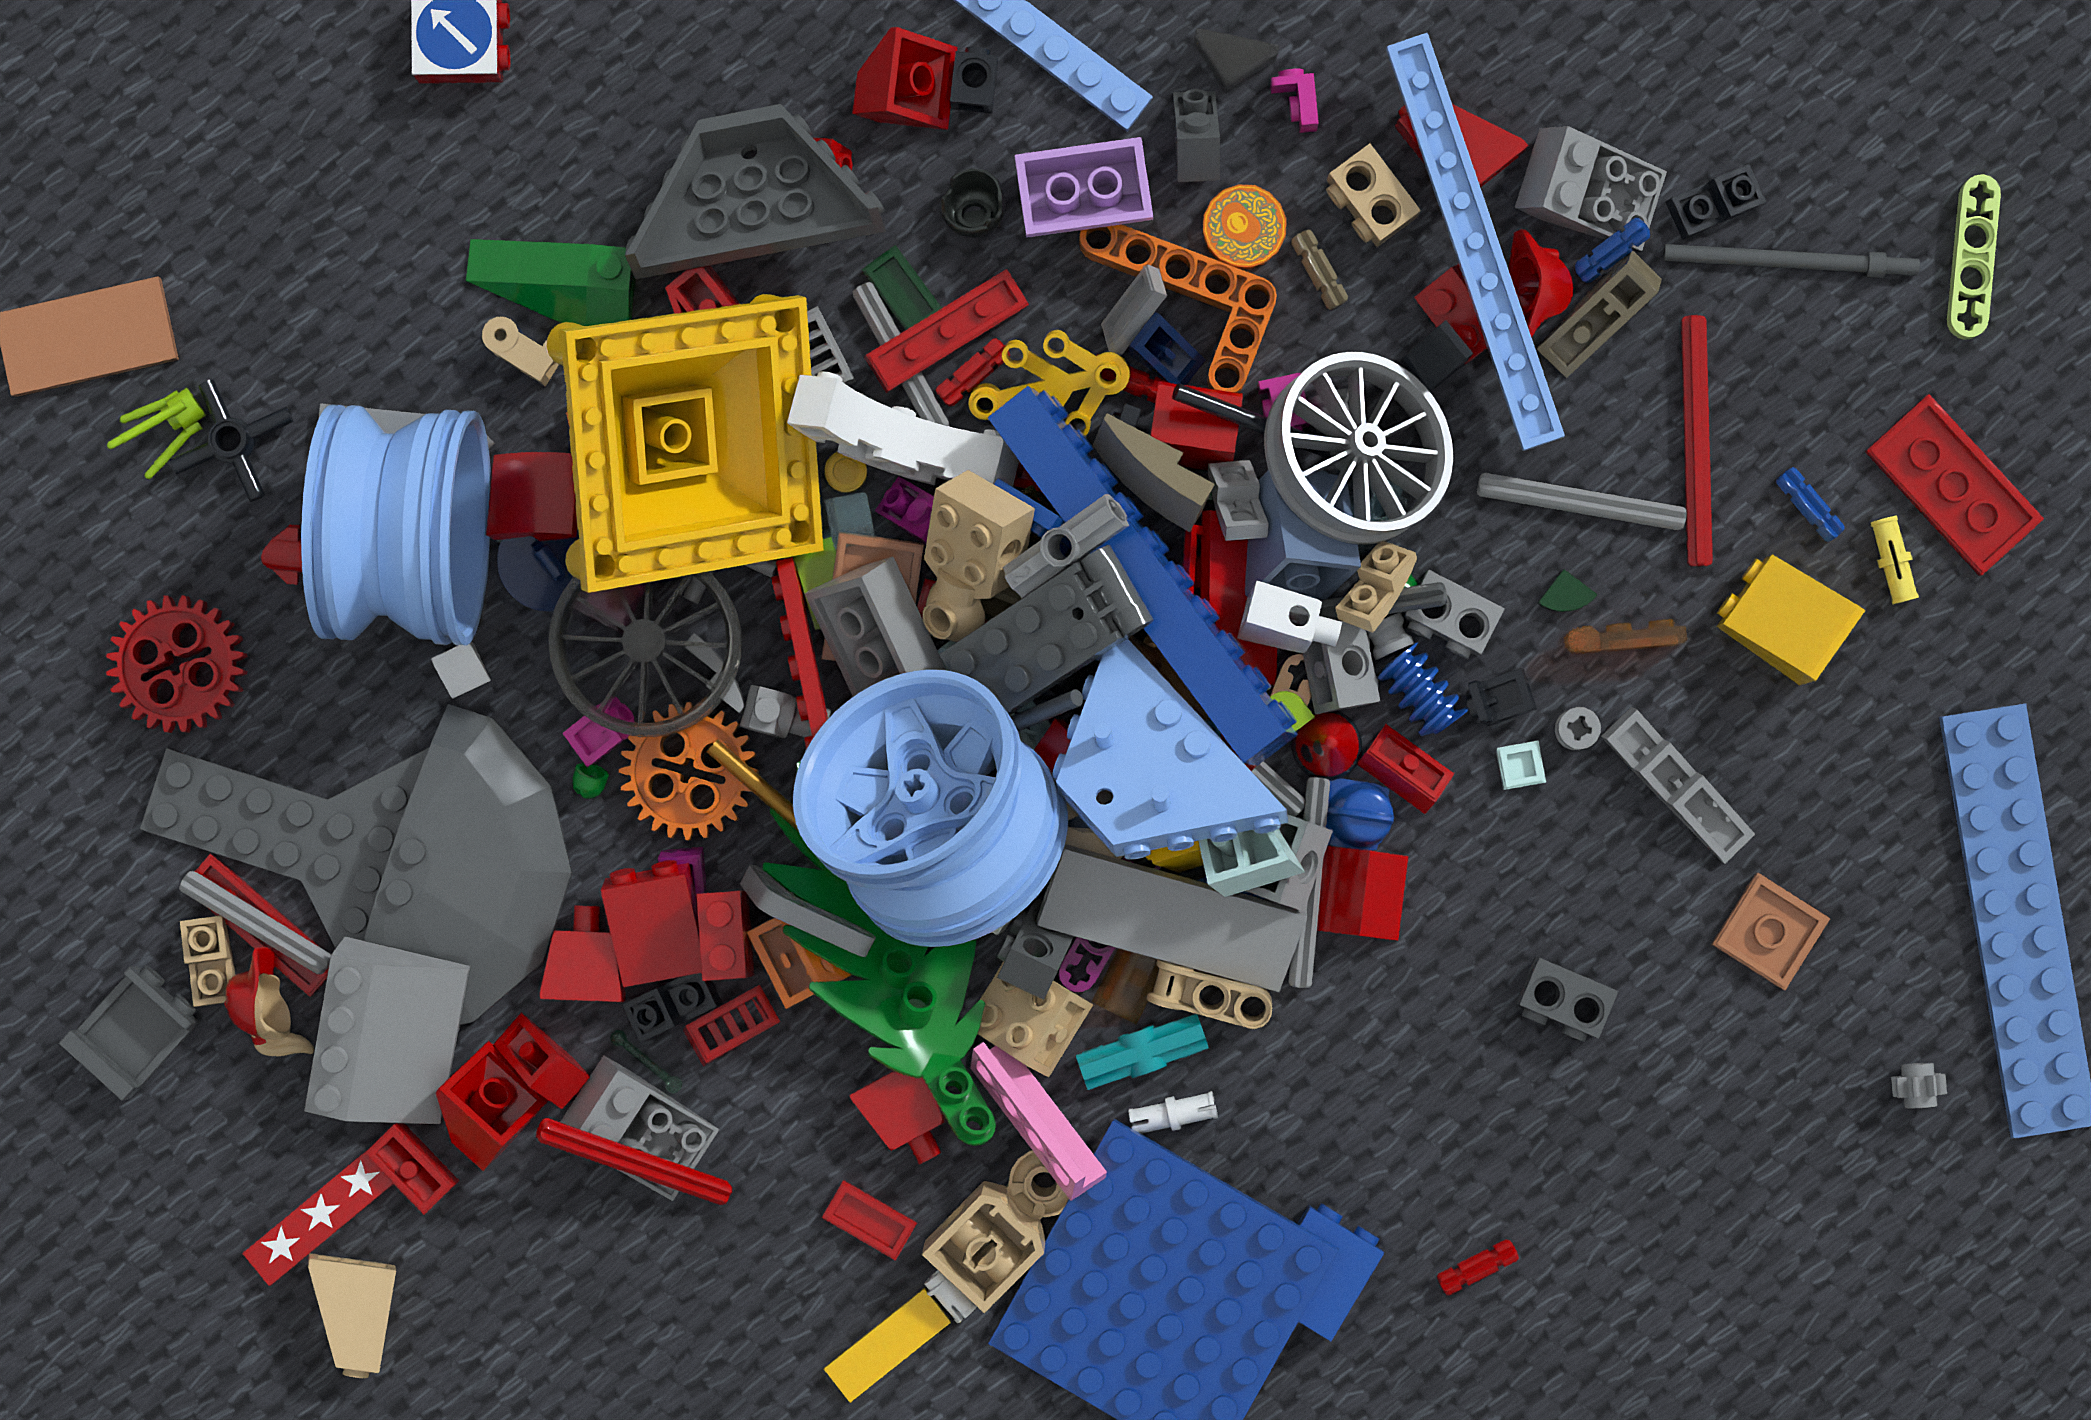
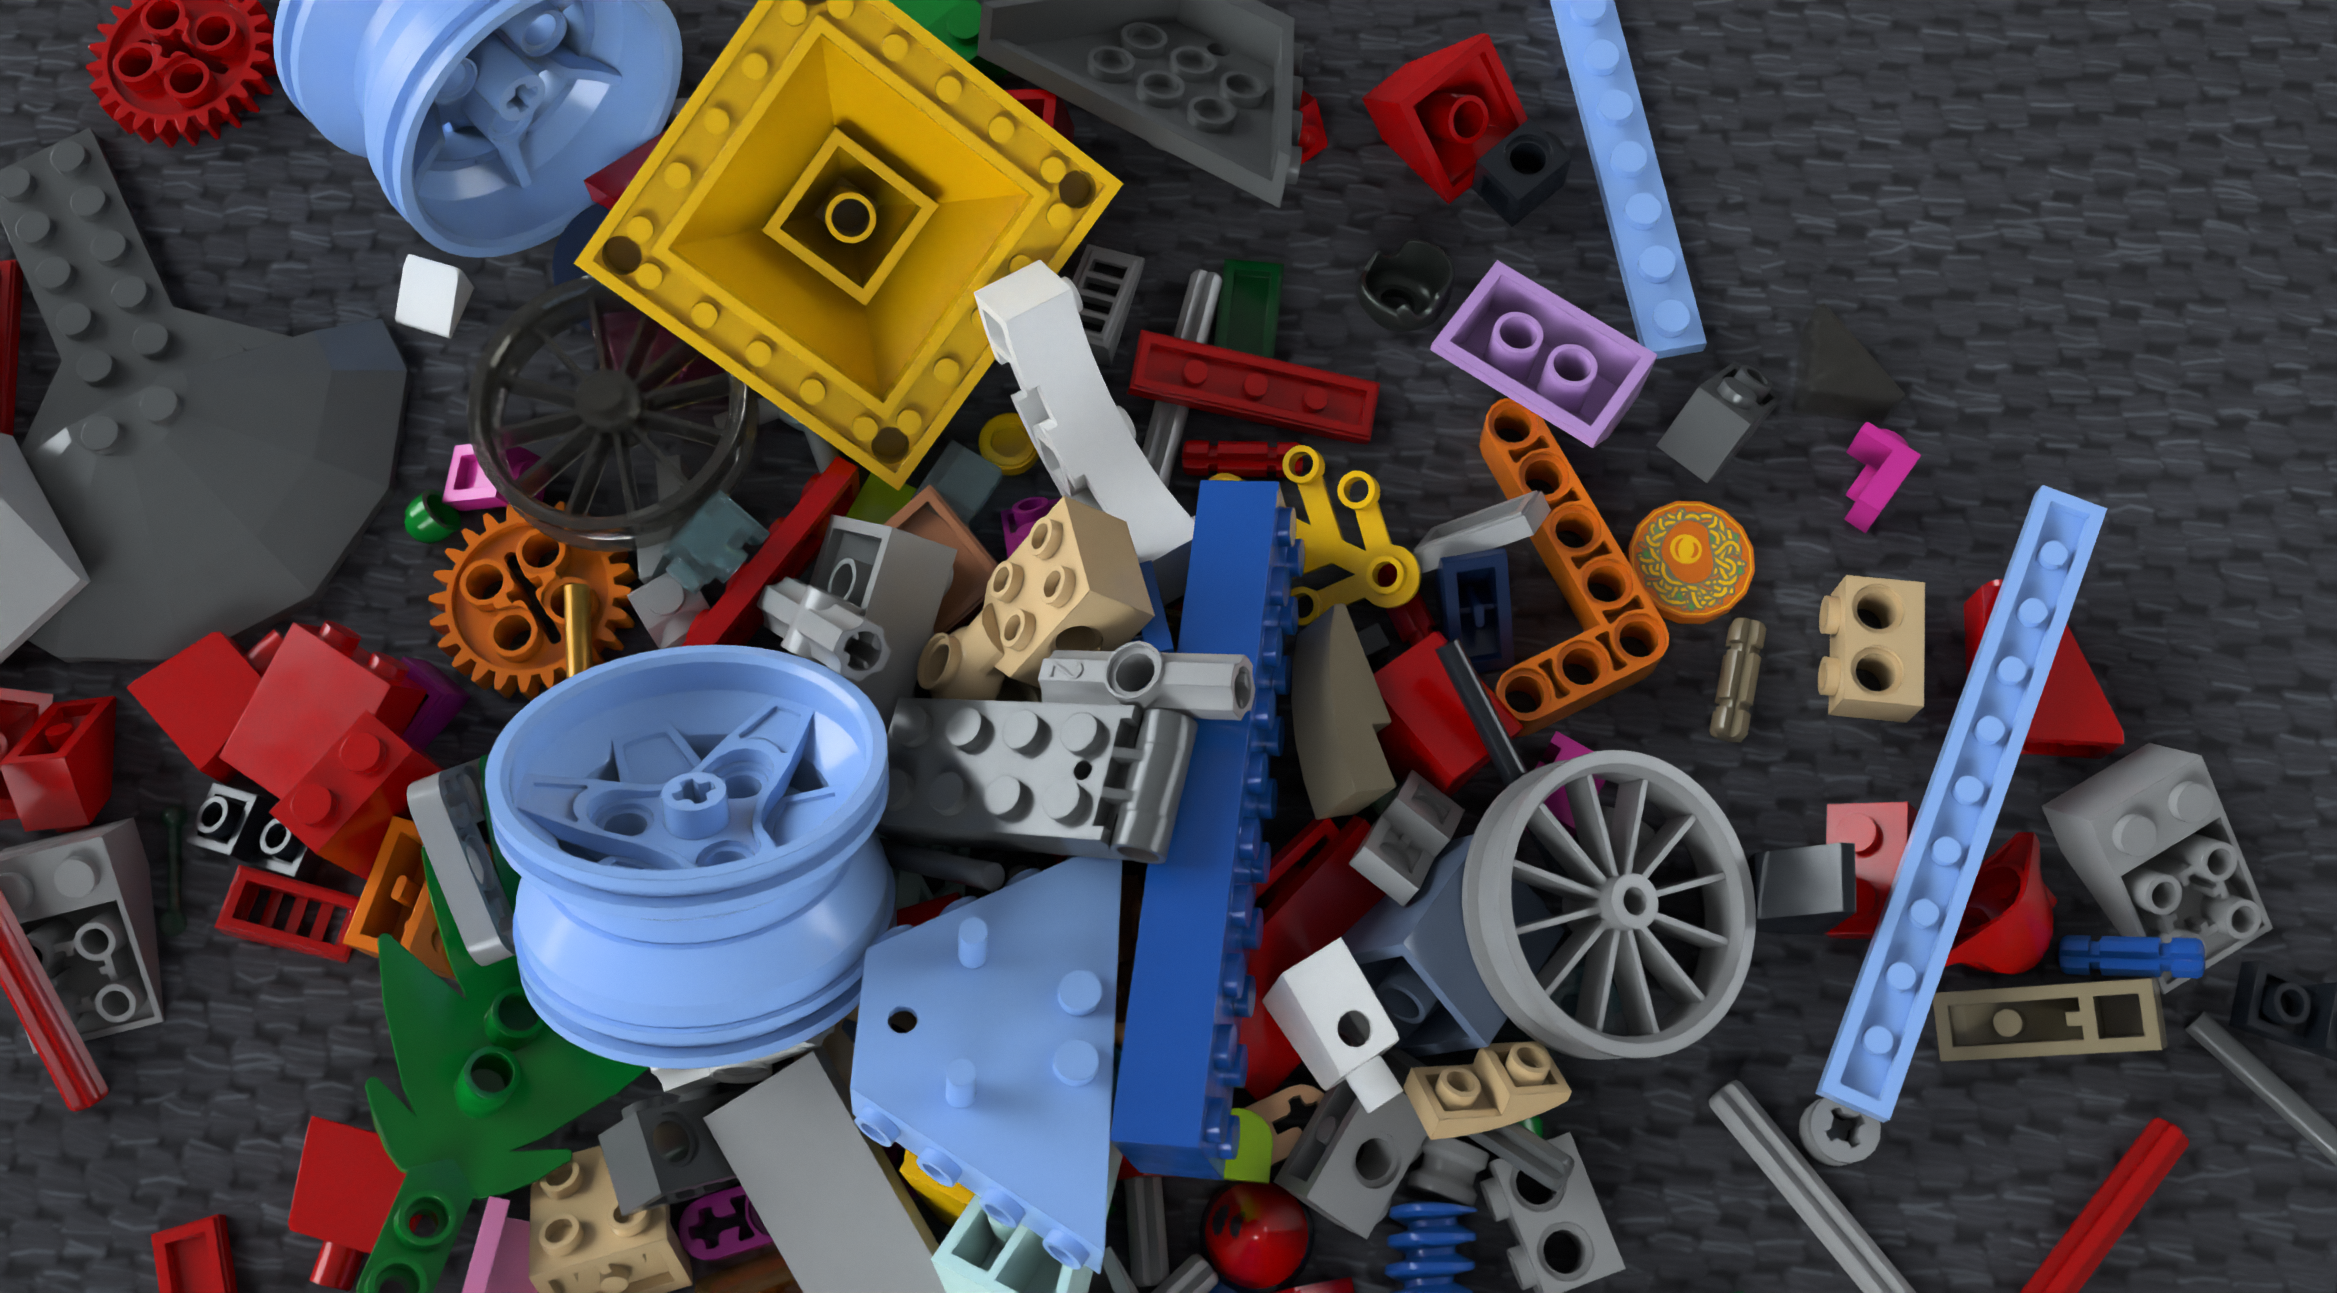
camera: 45 degrees right, 15 degrees down
(768, 663) = (712, 543): none -> clear light blue brick
(873, 655) = (824, 628): none -> light grey piece
(1542, 461) = (1826, 1136): none -> light grey wheel

